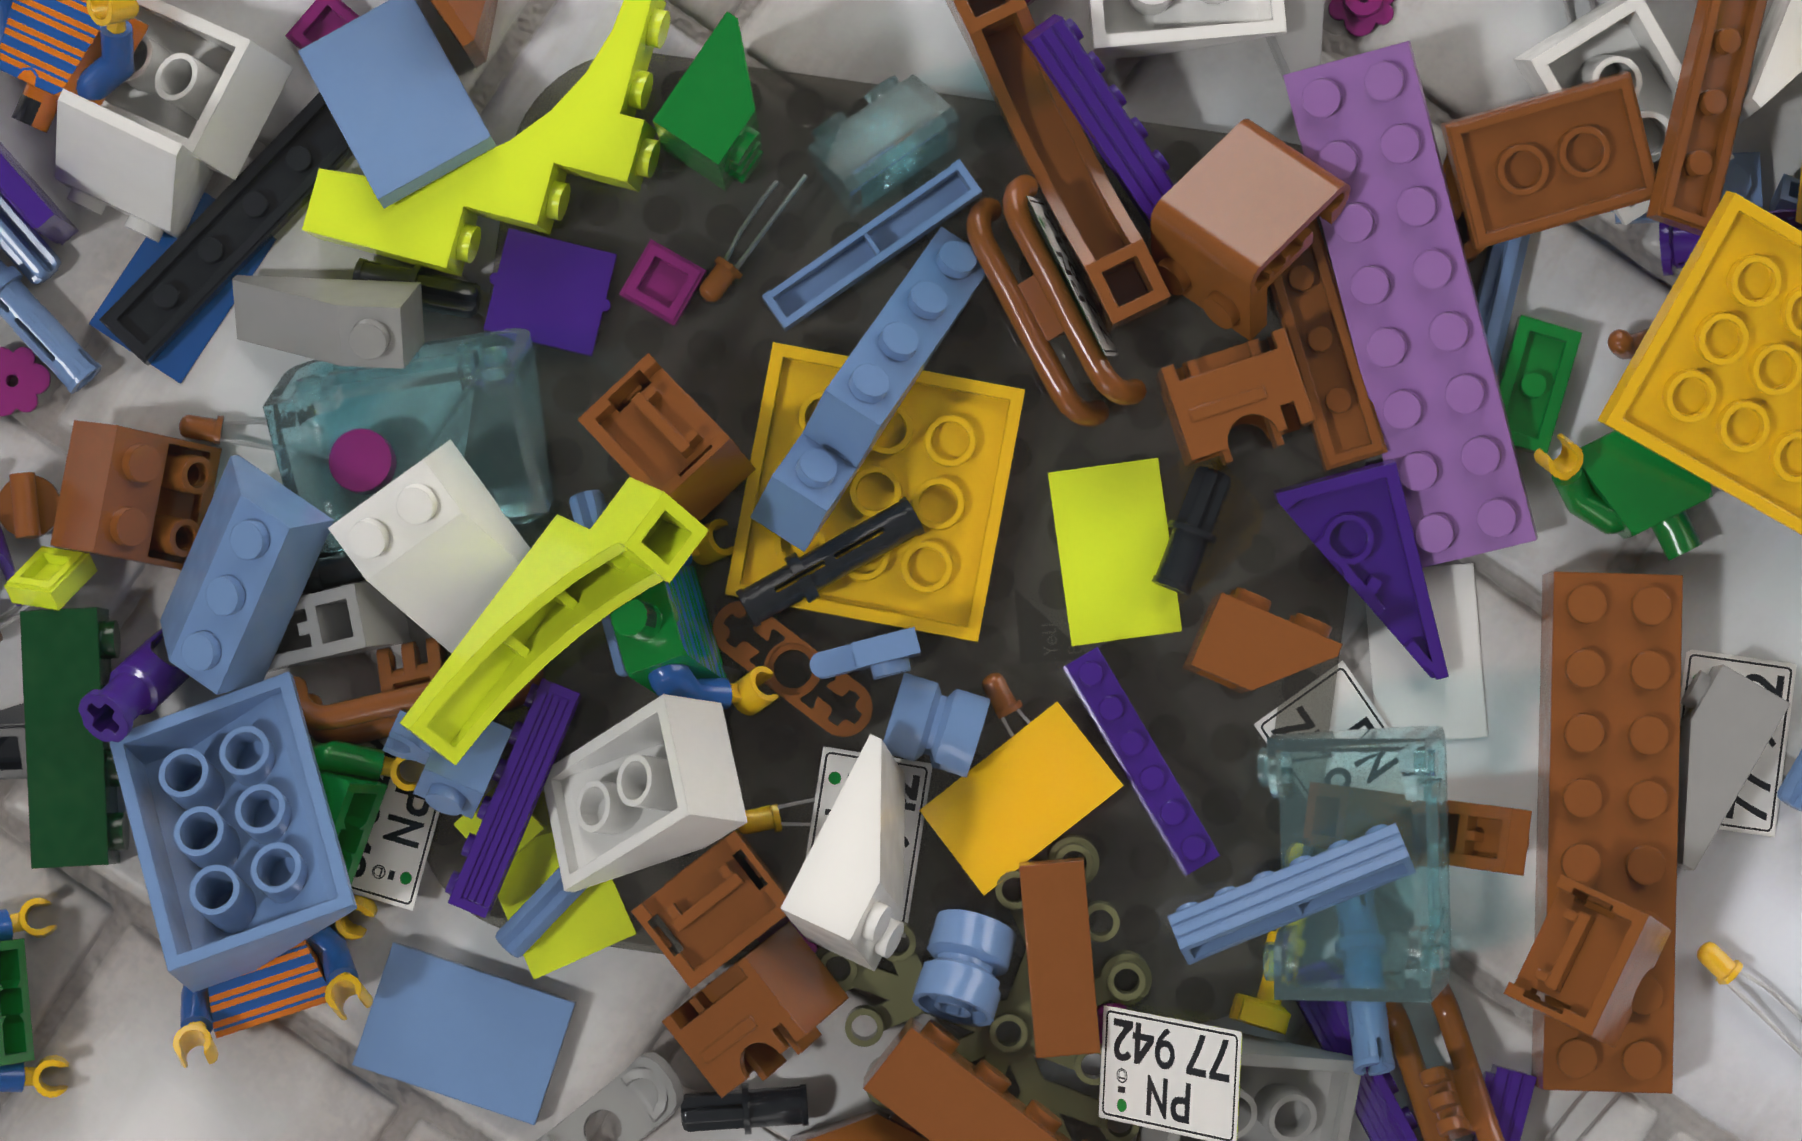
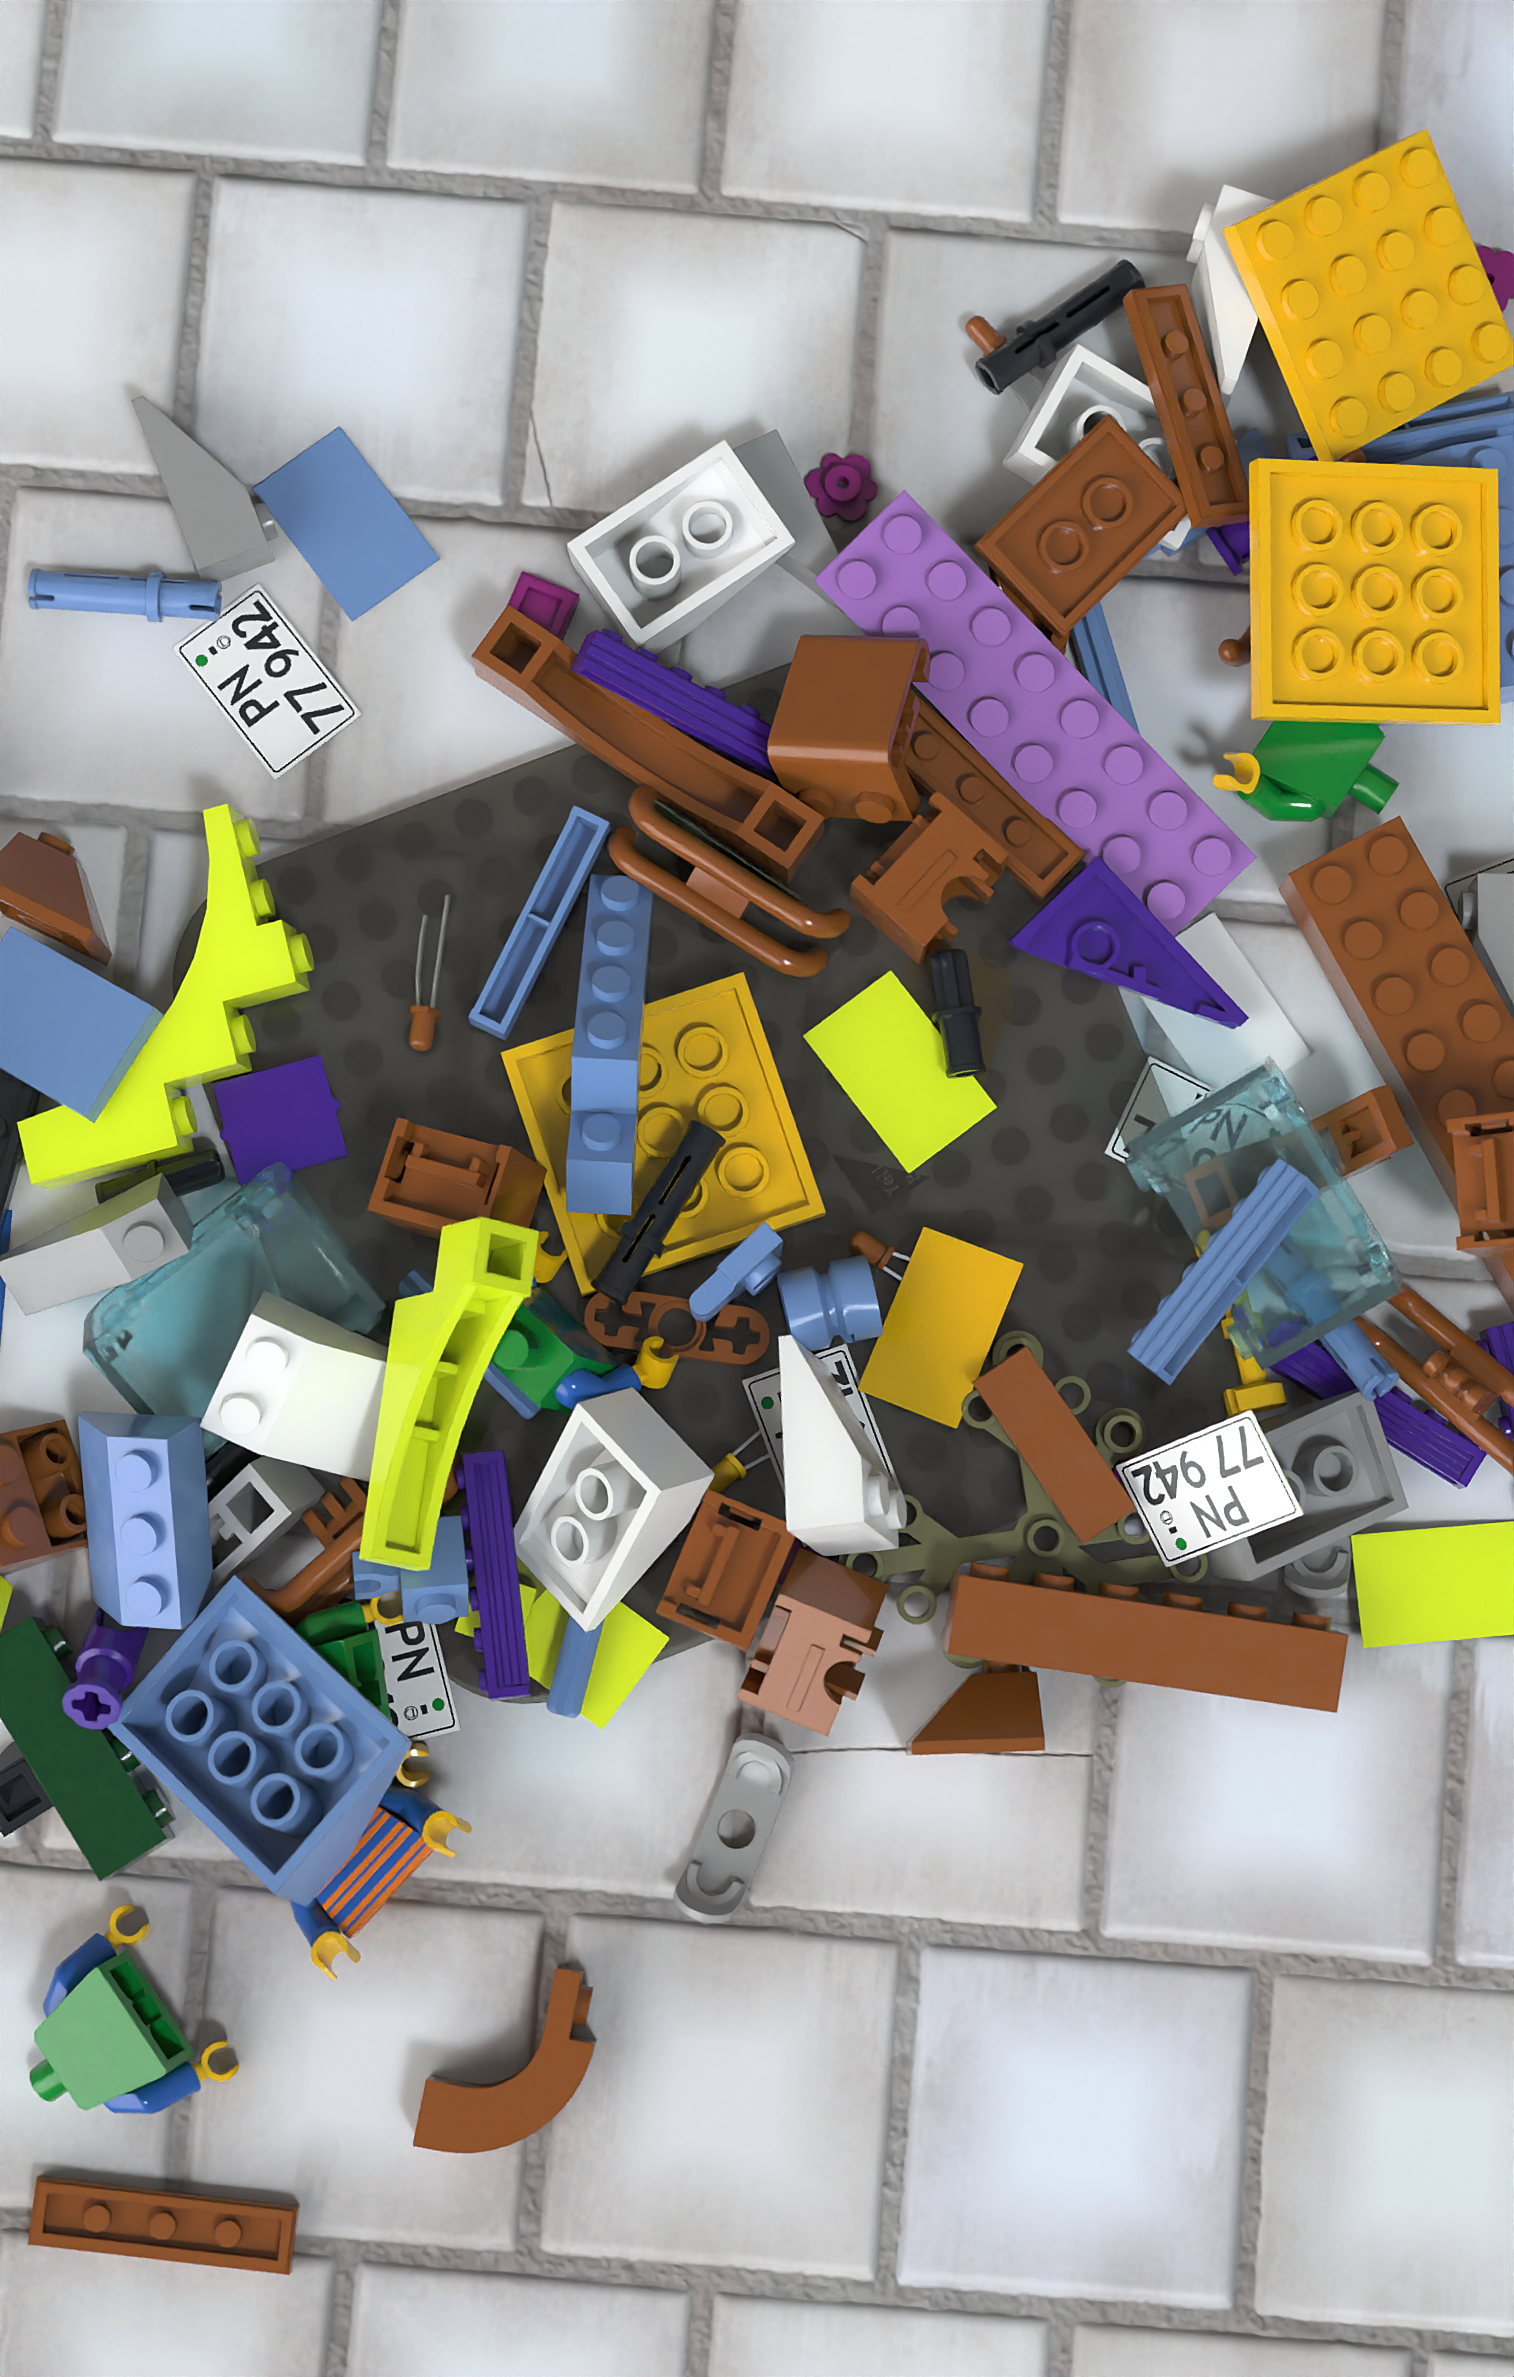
camera: 30 degrees left, 5 degrees down
(211, 430) = (46, 1406): dark orange piece -> none
(362, 461) = (196, 1358): magenta tile -> none
(464, 1033) = (566, 1813): medium blue tile -> none
(663, 283) = (375, 1057): magenta tile -> none
(712, 111) = (338, 877): green slope -> none
(745, 1109) = (853, 1739): black axle -> none
(883, 142) = (501, 826): clear light blue slope -> none
(967, 957) = (975, 1498): medium blue wheel -> none
(1141, 761) = (1025, 1237): dark purple piece -> none
(1250, 647) = (1064, 1080): dark orange slope -> none
(1536, 380) = (1177, 722): green plate -> none

